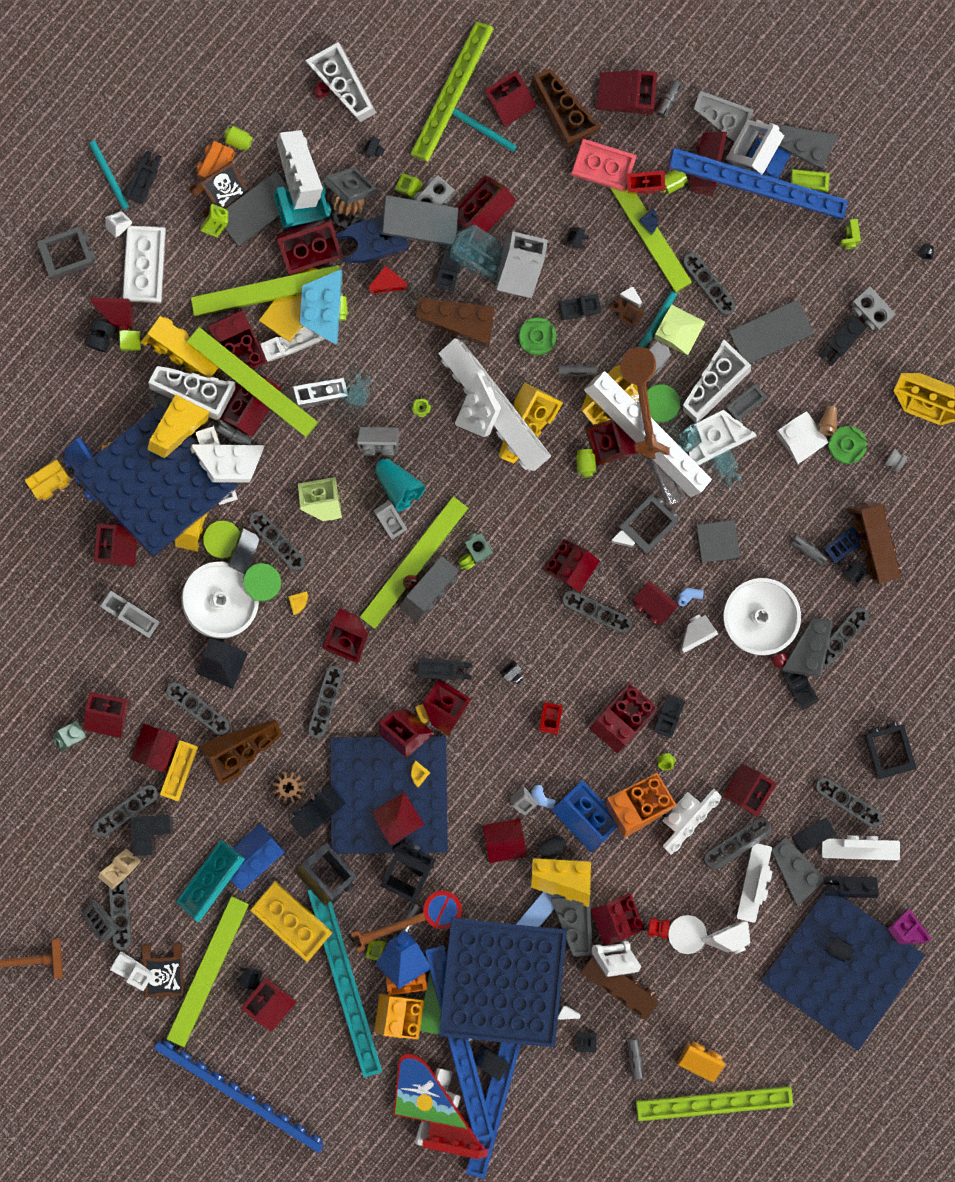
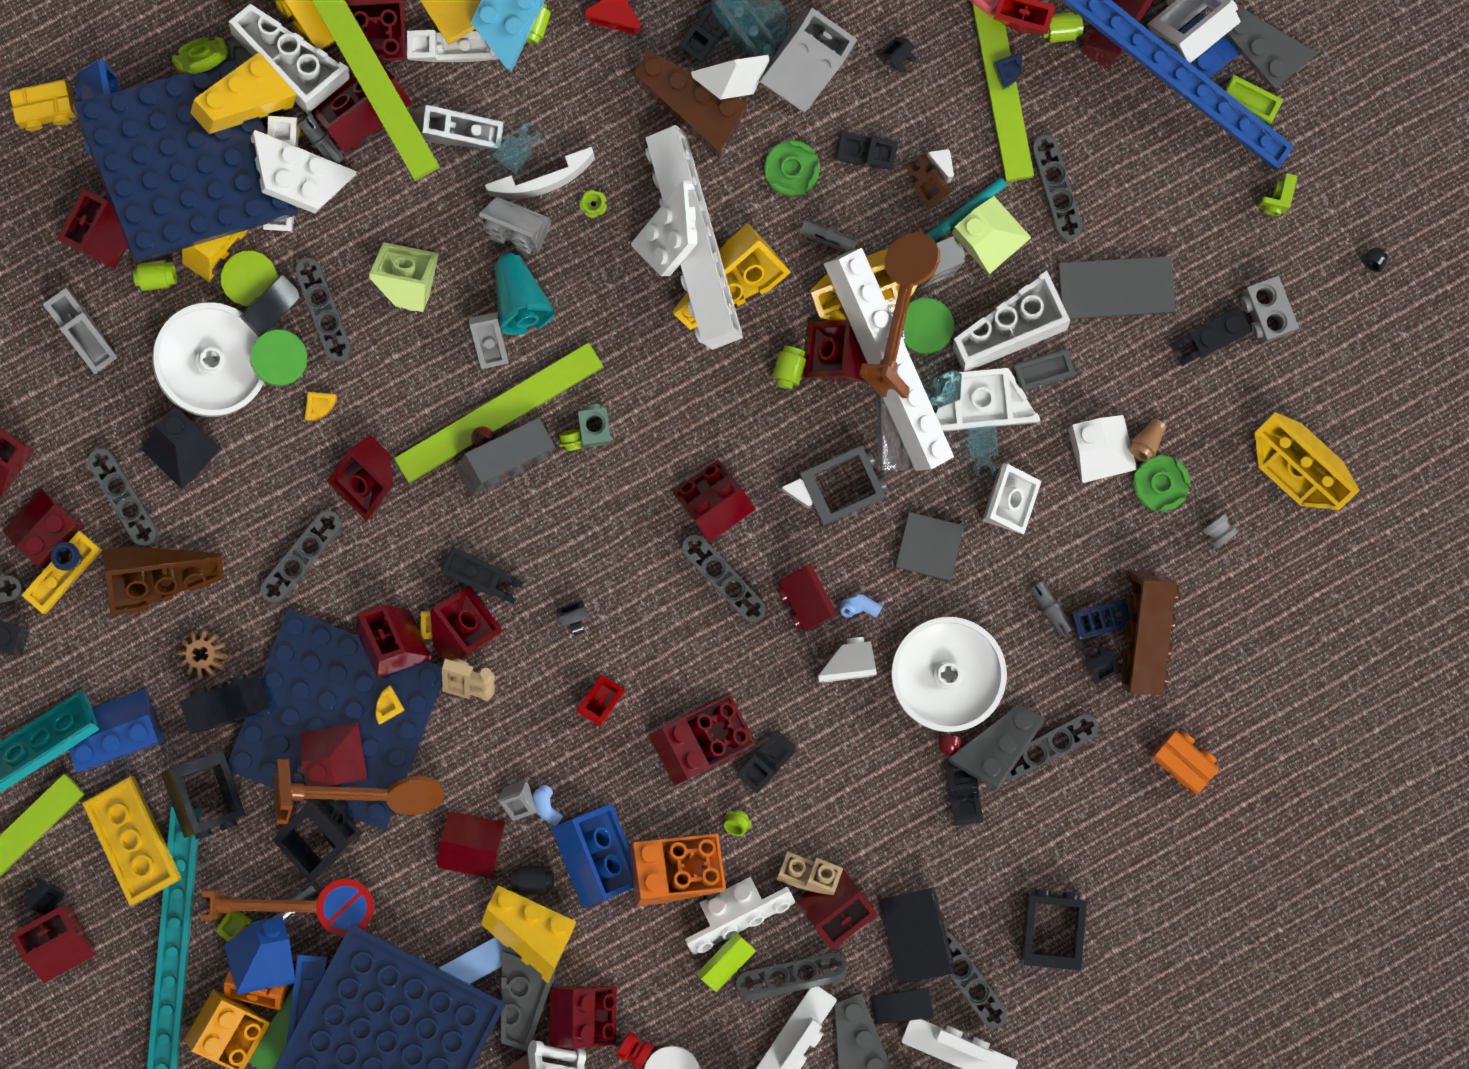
camera: 15 degrees right, 0 degrees up
(136, 410) = (200, 55): none -> lime tile
(162, 561) = (155, 275): none -> lime brick
(175, 758) = (61, 553): none -> dark blue cone
(364, 419) = (576, 162): none -> white slope
(453, 826) = (406, 796): none -> dark orange piece
(459, 739) = (462, 681): none -> tan plate
(479, 294) = (733, 77): none -> white slope
(693, 850) = (726, 962): none -> lime tile
(724, 776) = (809, 875): none -> tan slope
(757, 491) = (1011, 499): none -> white slope
(806, 787) = (917, 935): none -> black tile
(930, 613) = (1185, 762): none -> orange brick

